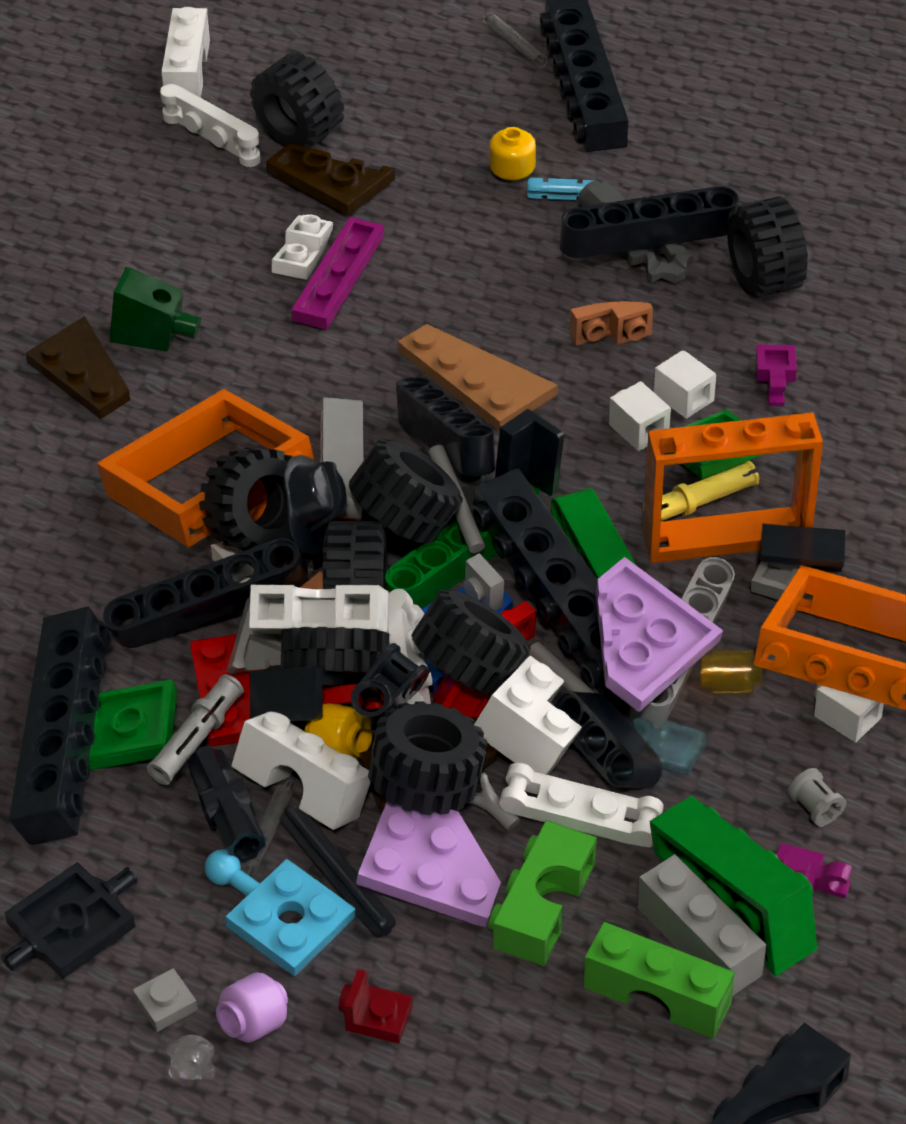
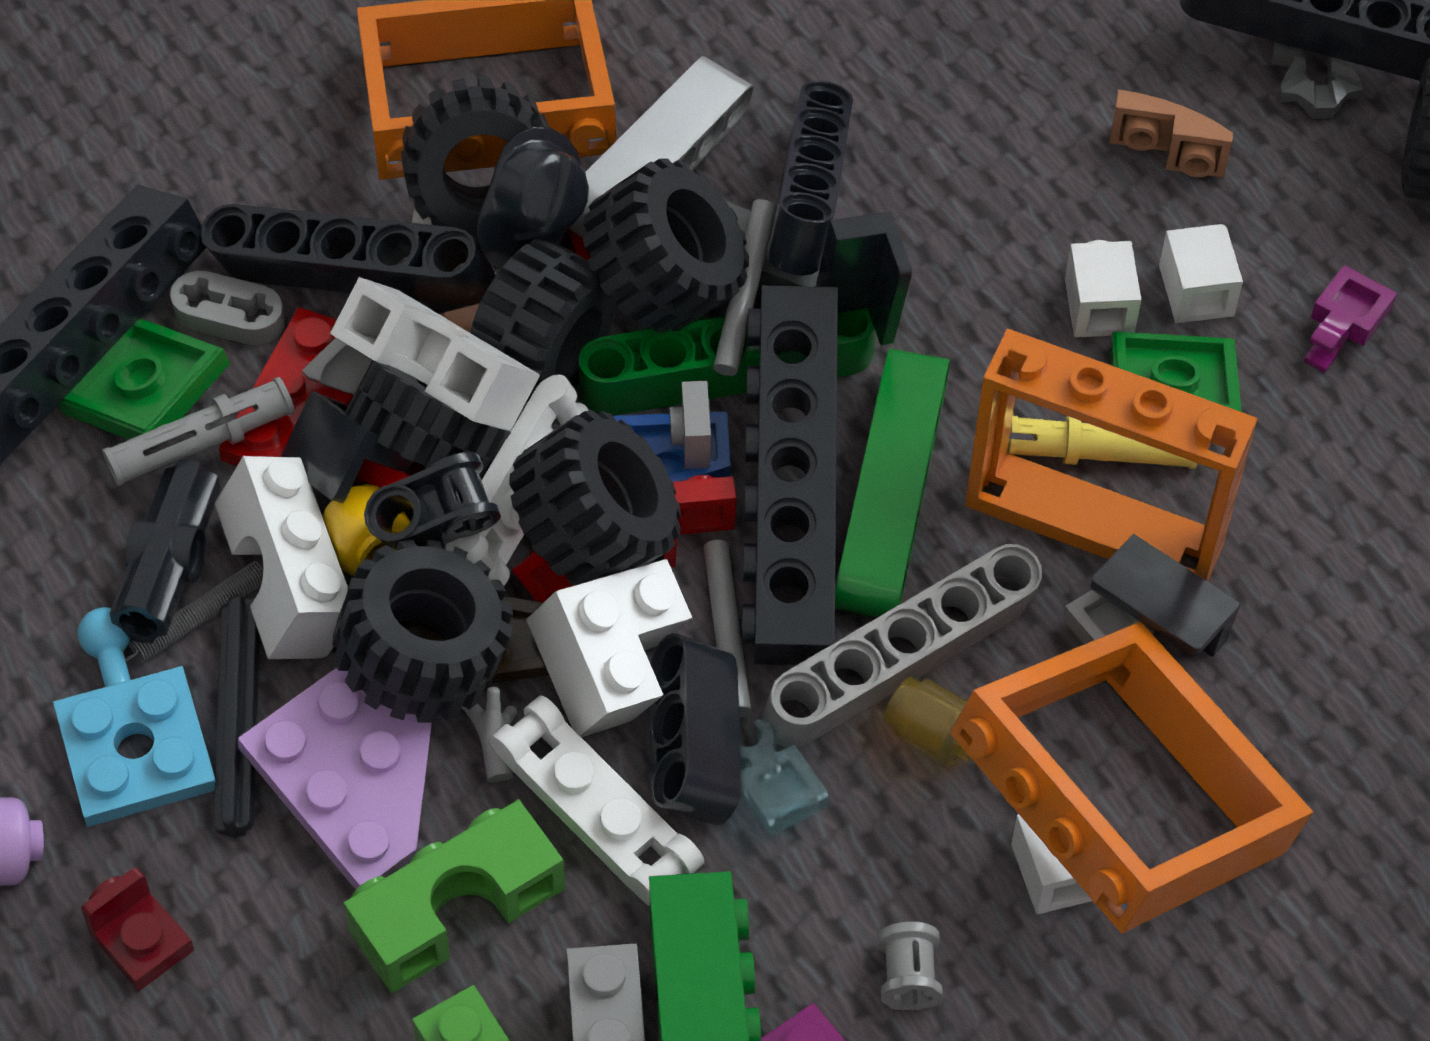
camera: 30 degrees right, 10 degrees up
(145, 663) = (228, 306): none -> light grey beam
(477, 378) = (940, 128): medium nougat wing -> none
(646, 634) = (835, 613): lavender plate -> none

